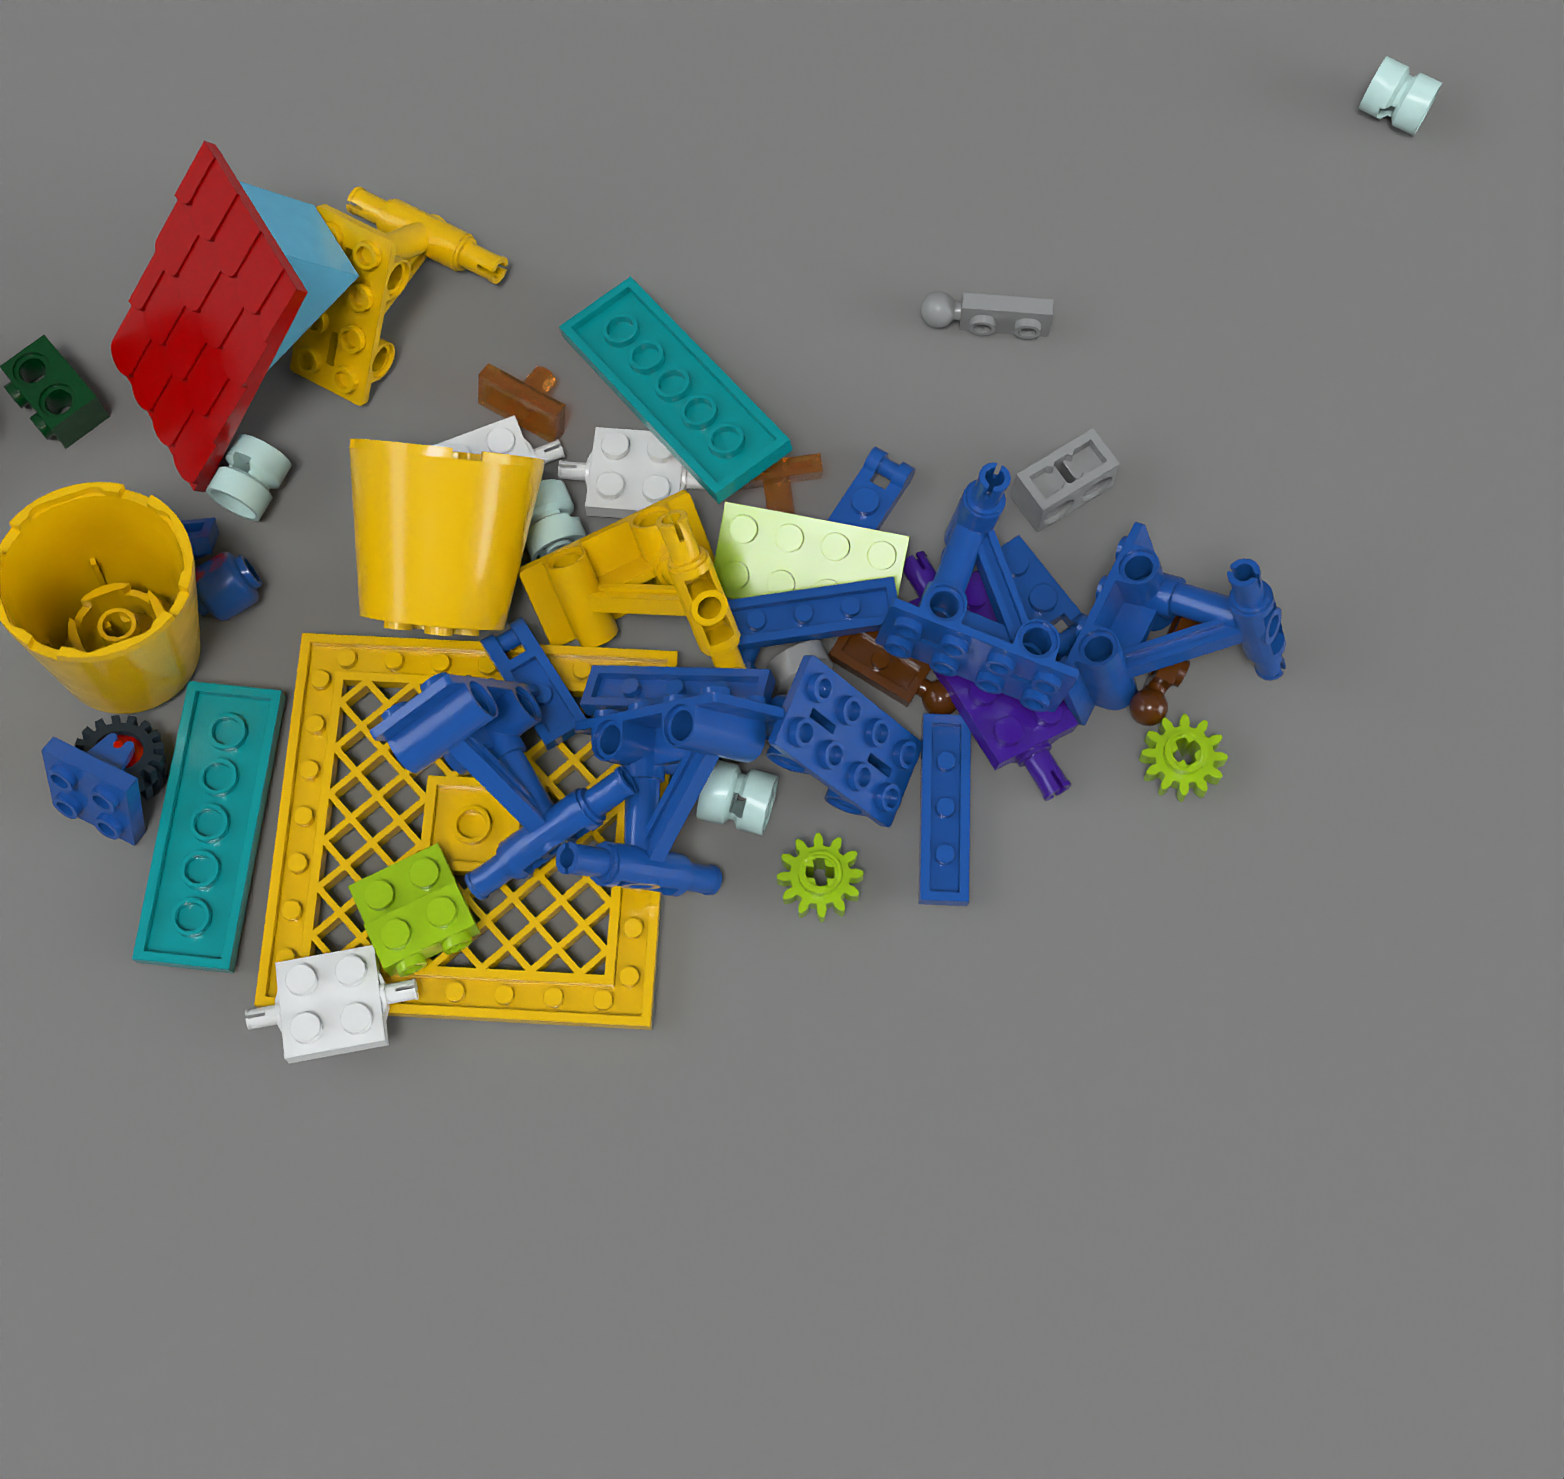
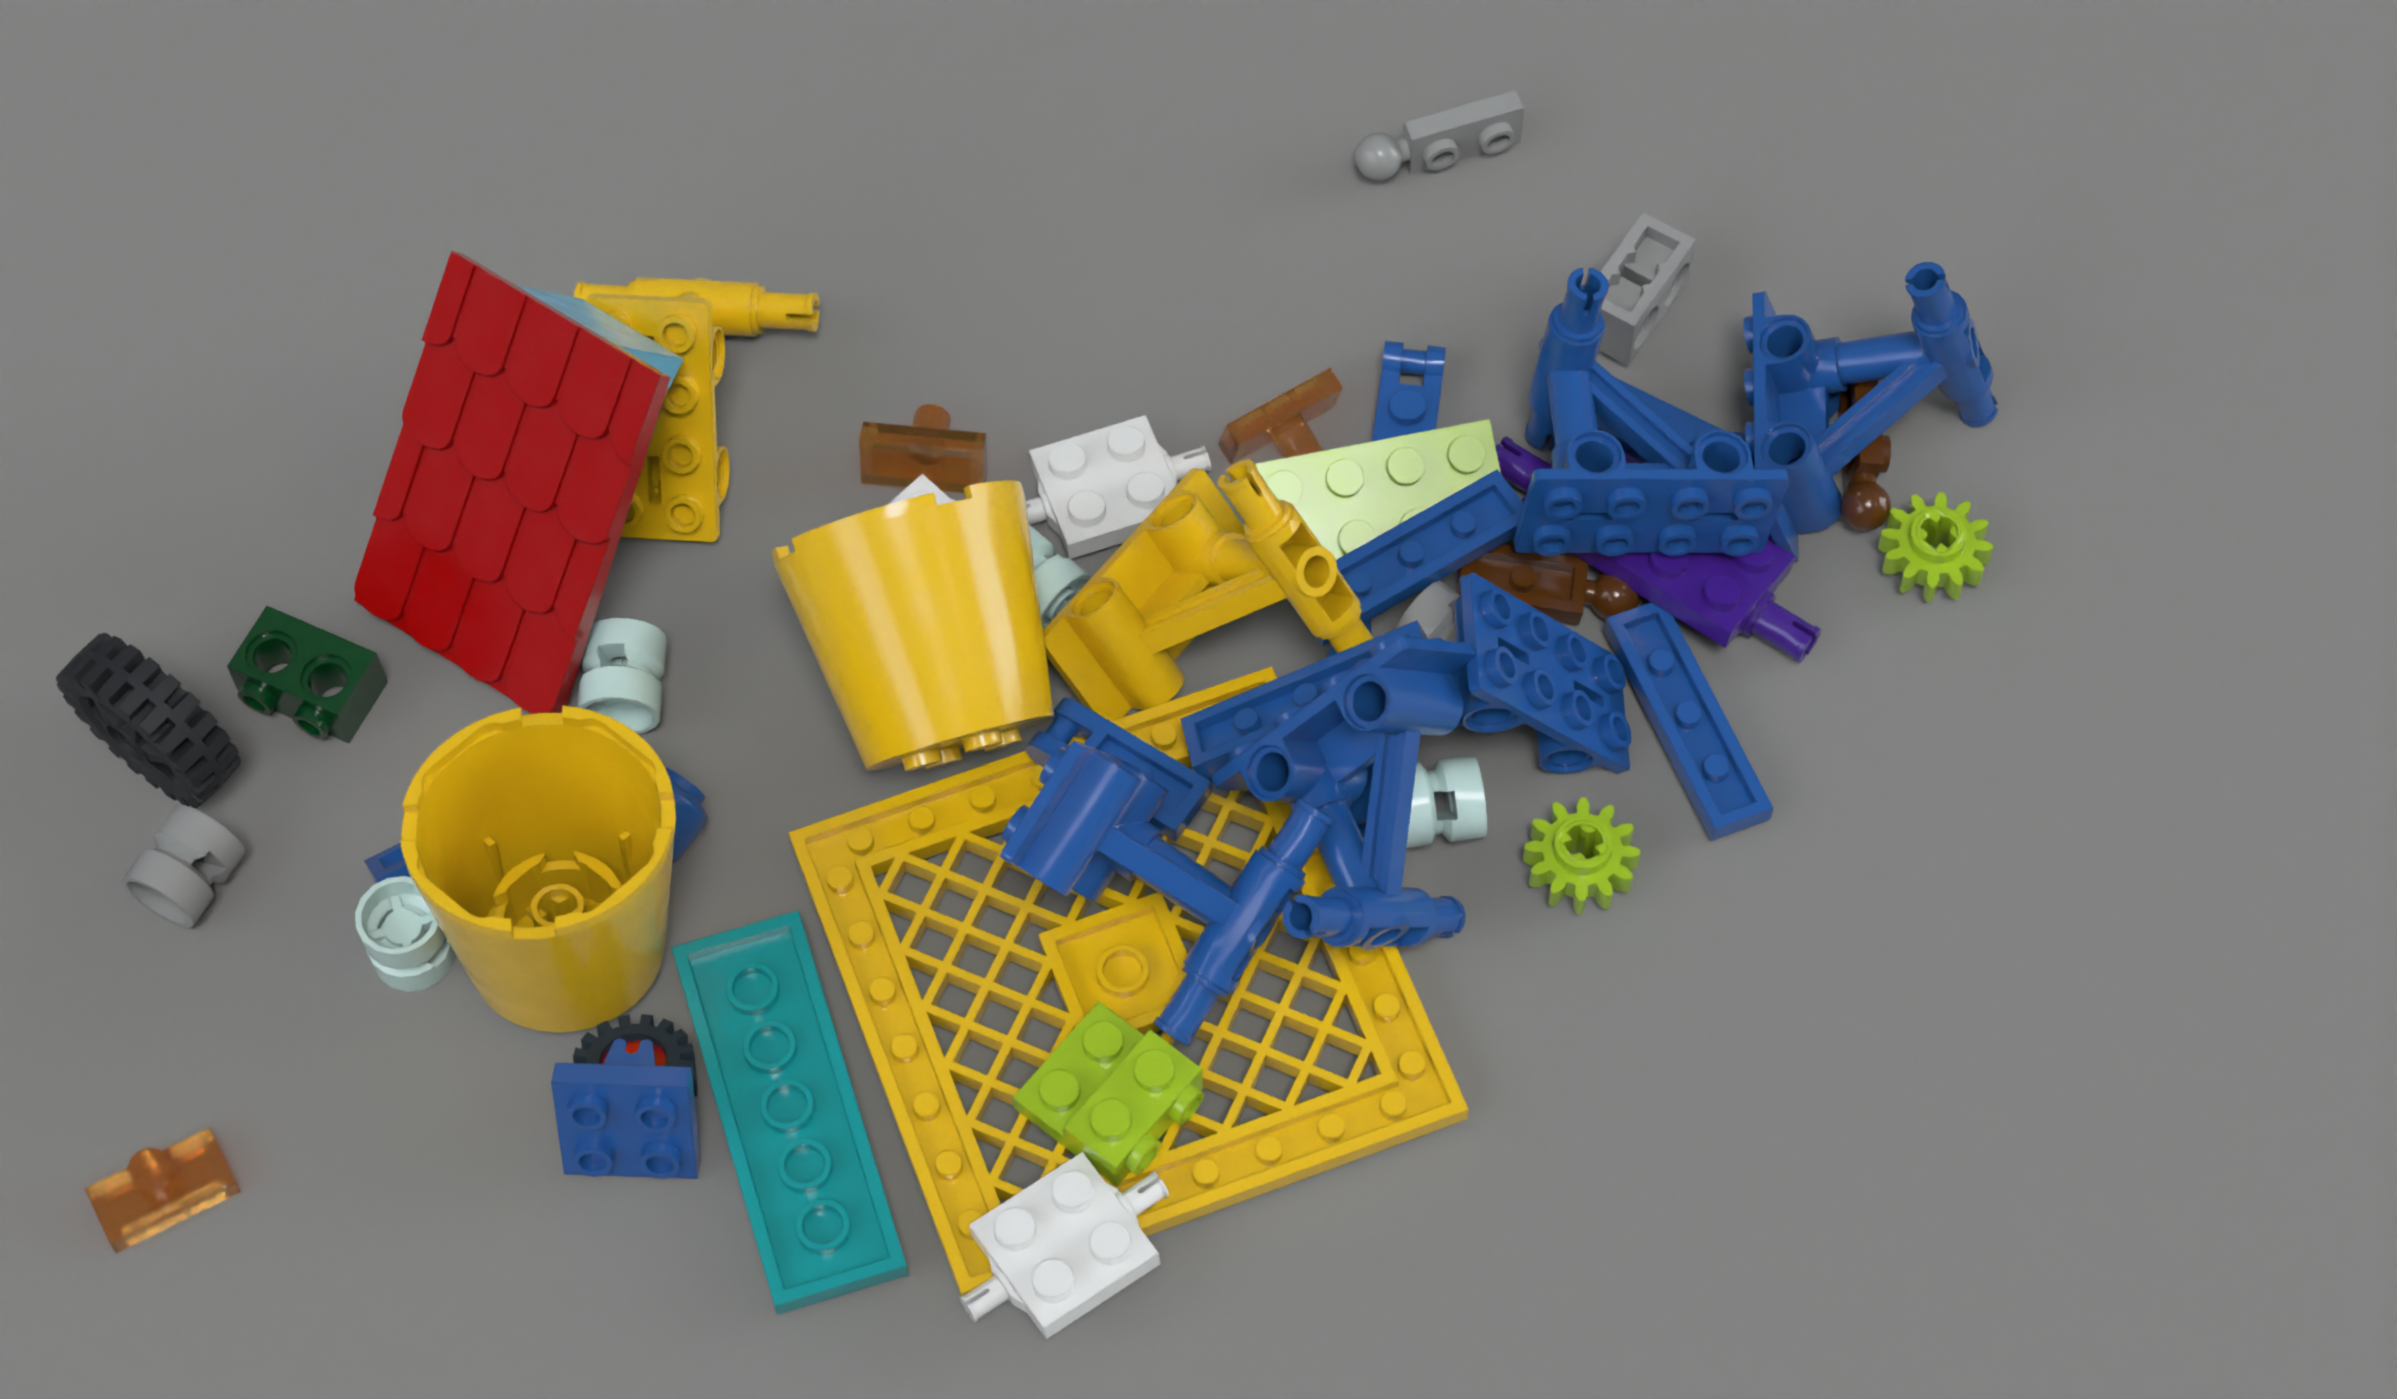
camera: 25 degrees left, 10 degrees down
(676, 389) = (1112, 362): teal plate -> none

